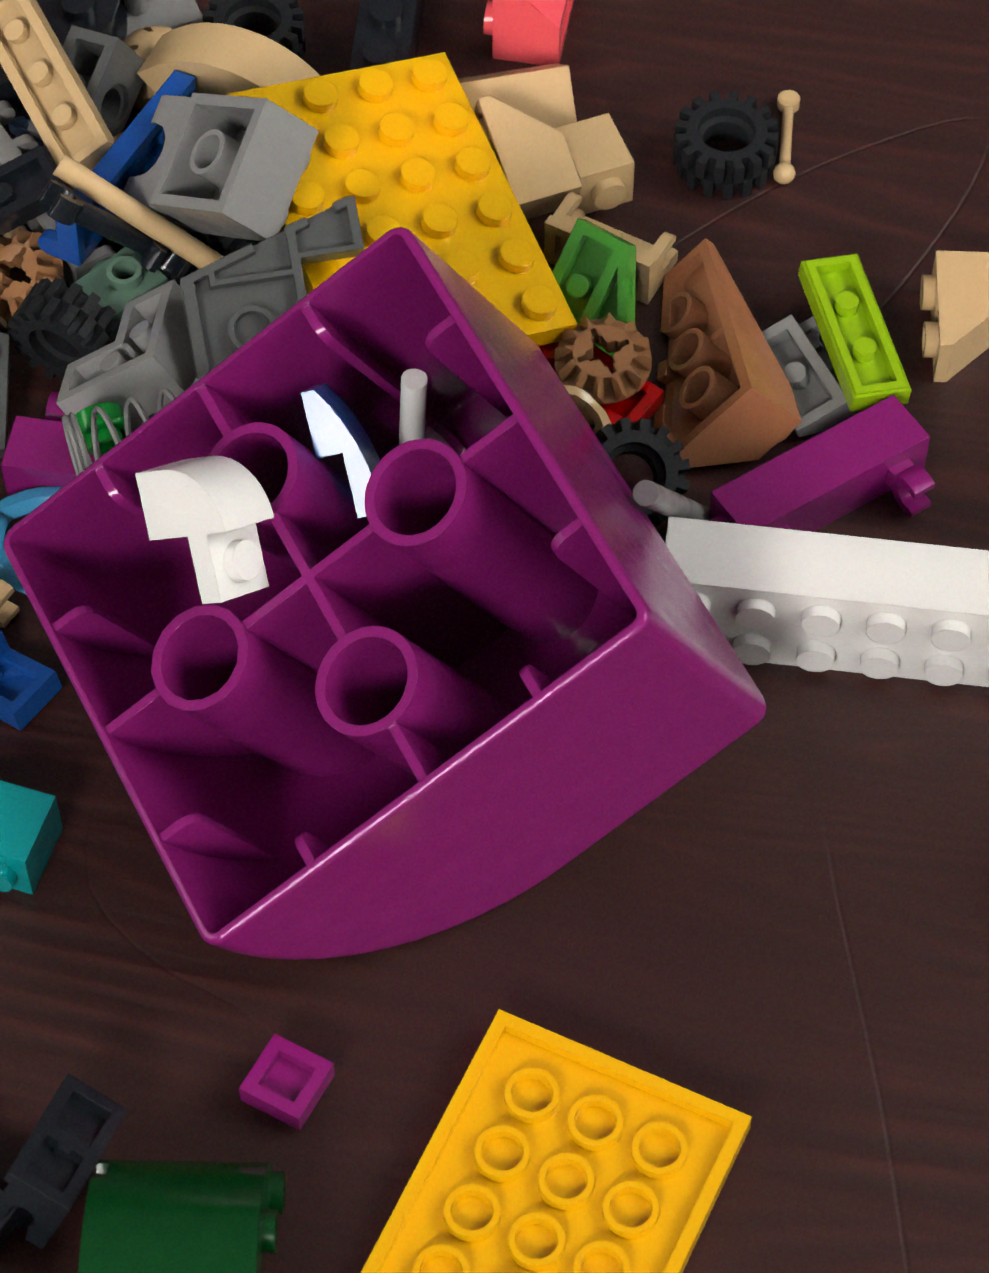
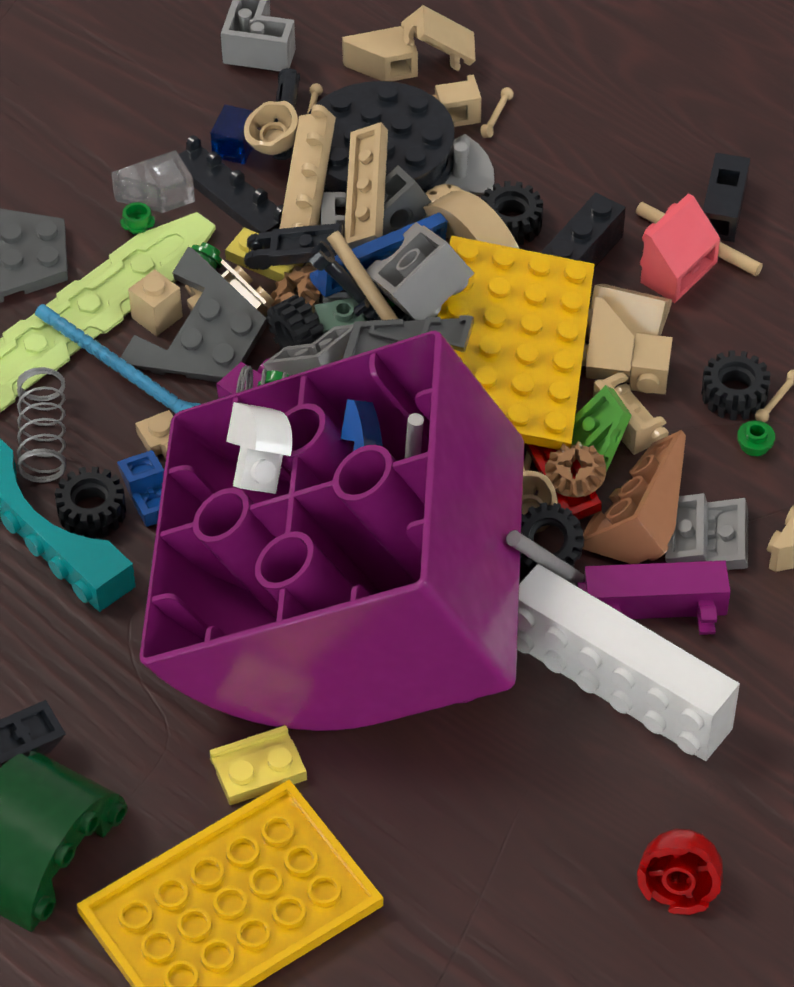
camera: 30 degrees right, 5 degrees down
(287, 1081) = (159, 763): magenta plate -> none
(429, 1010) = (257, 764): none -> light yellow plate
(799, 207) = (755, 438): none -> green plate
(853, 331) = (731, 517): lime tile -> none

